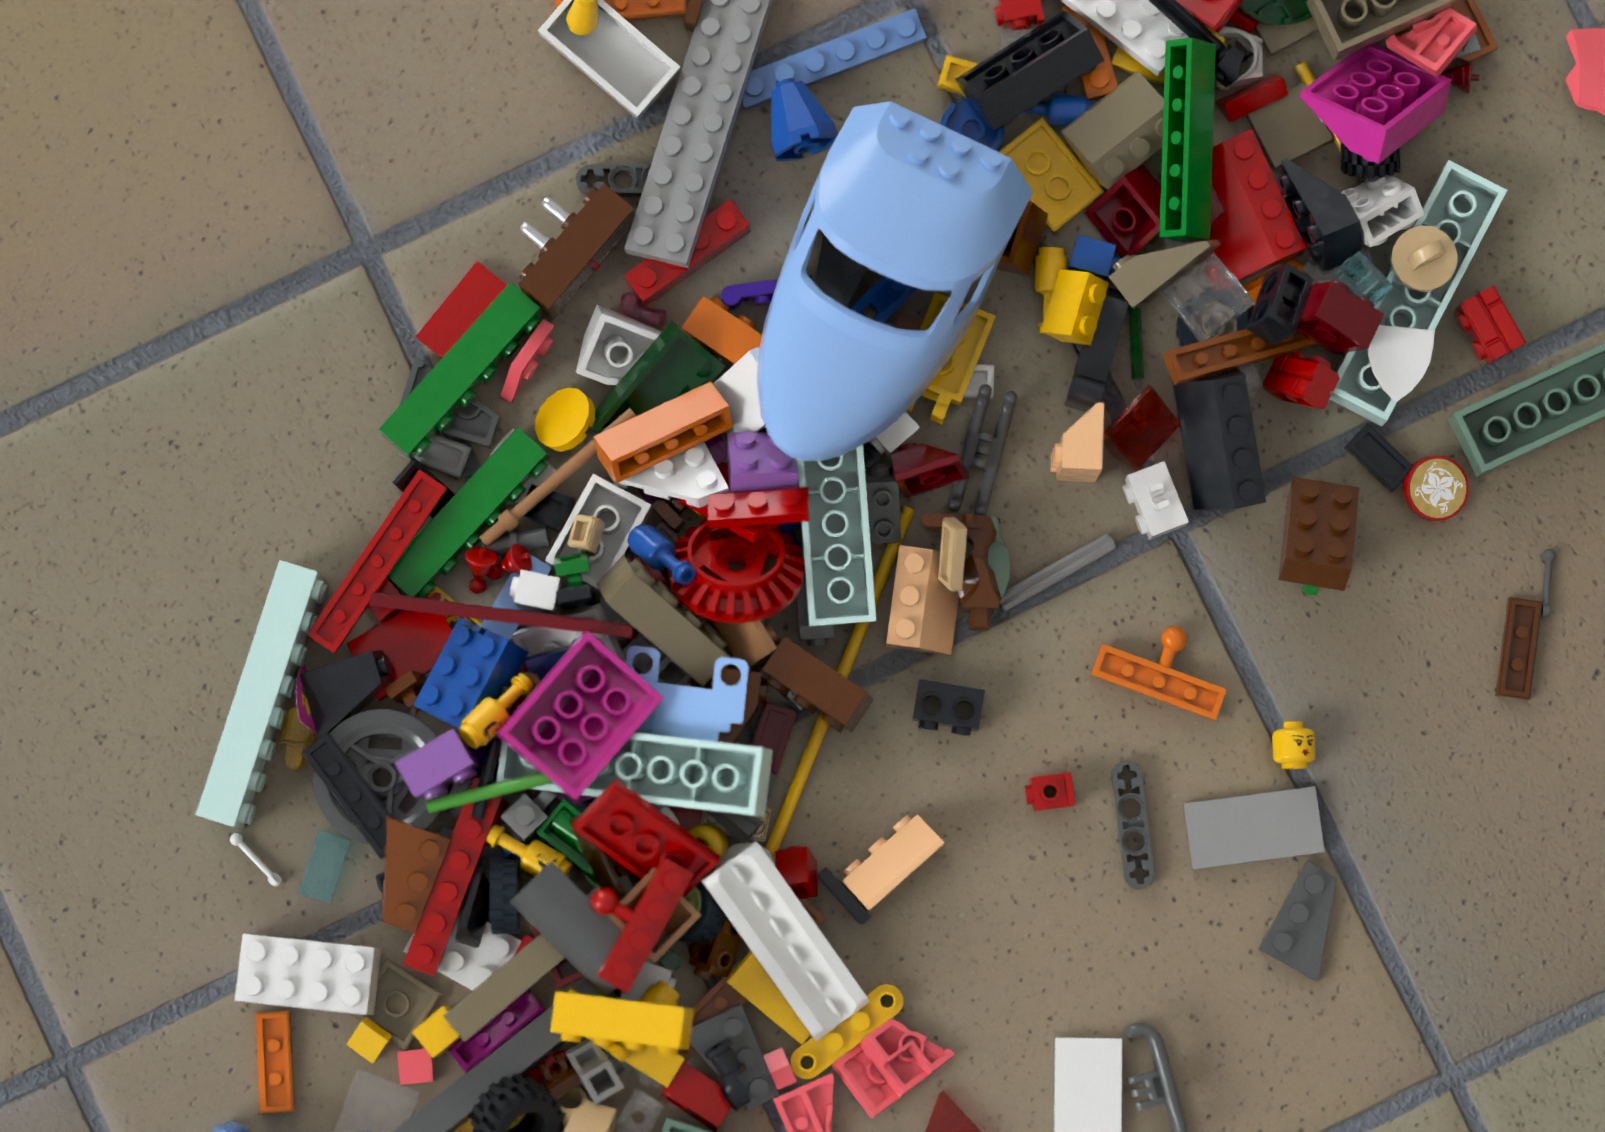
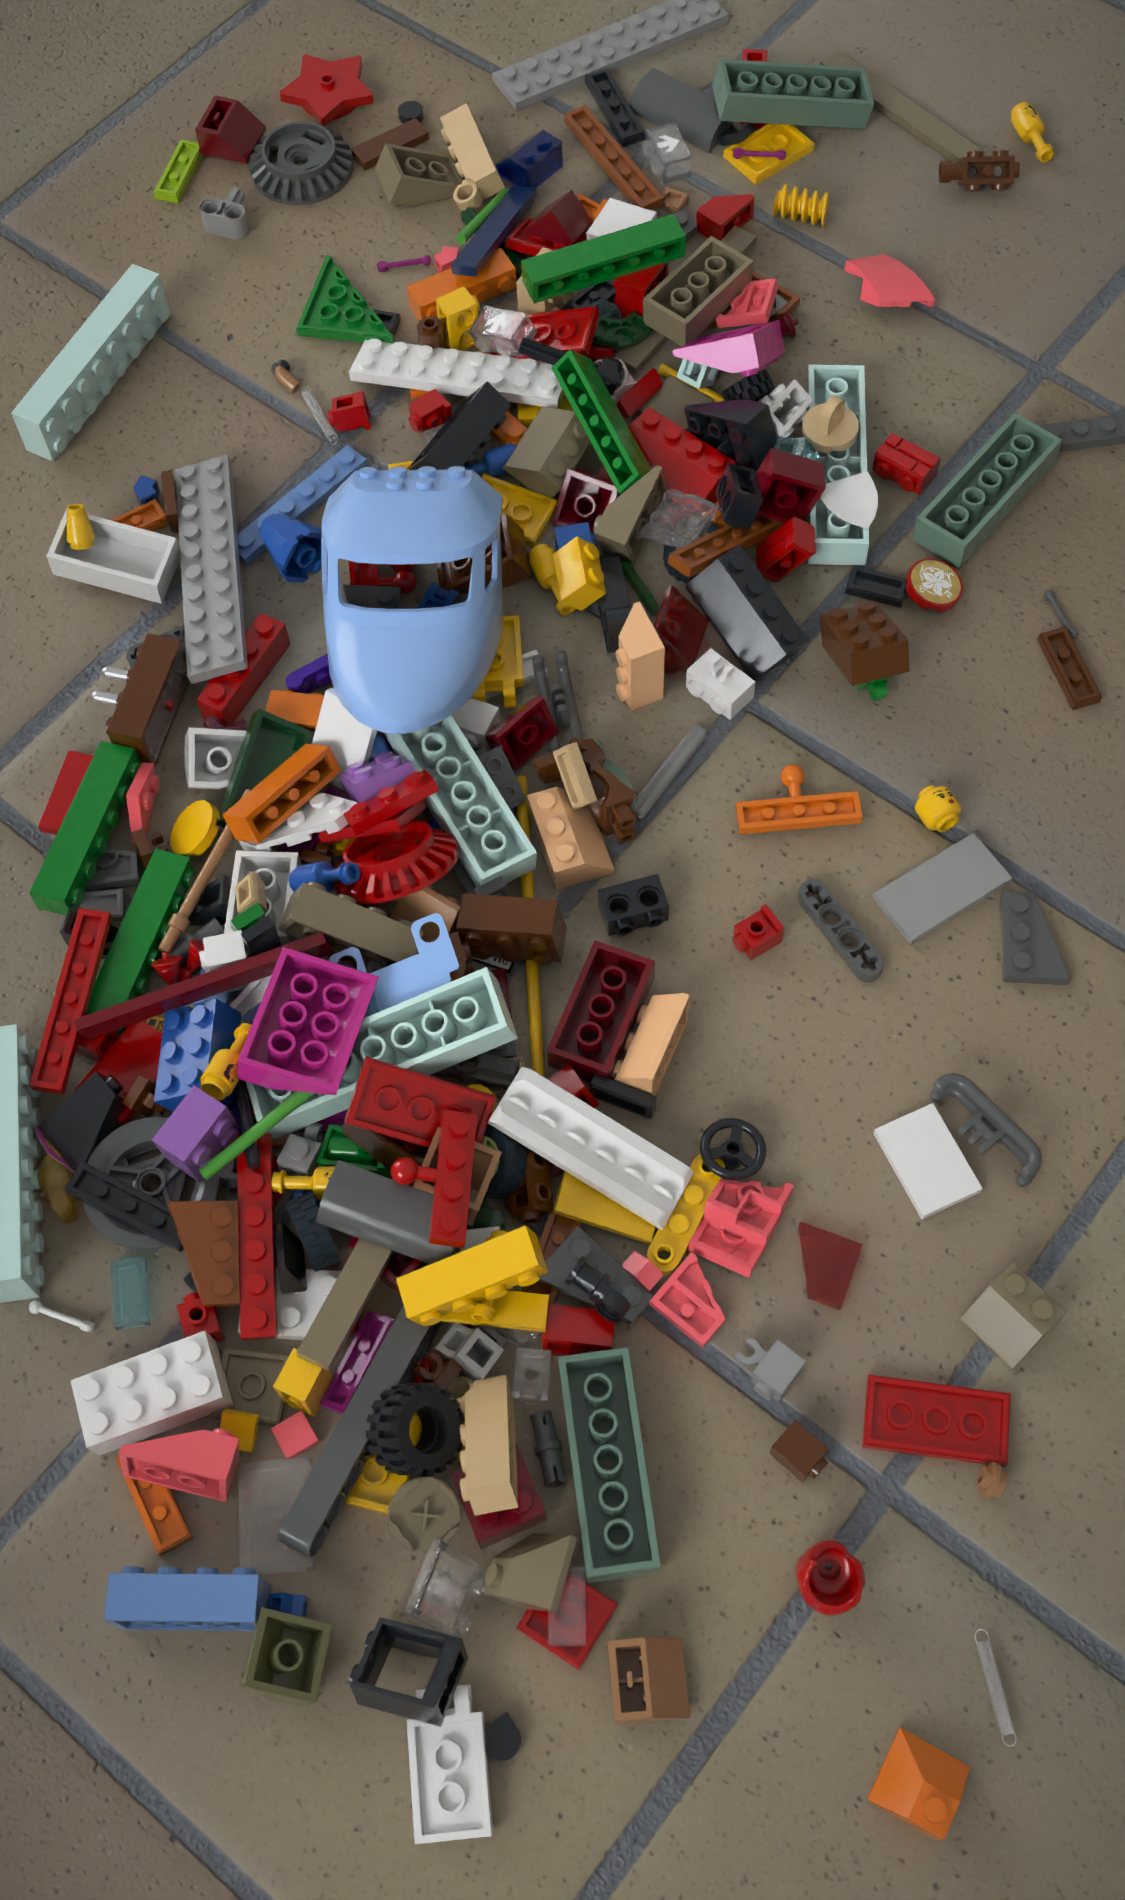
camera: 25 degrees left, 20 degrees down
(323, 1060) = (188, 1462): none -> coral slope
(365, 935) = (208, 1322): none -> red brick
(510, 414) = (146, 847): none -> reddish brown tile
(862, 806) = (601, 1011): none -> dark red brick
(890, 993) = (732, 1161): none -> black piece

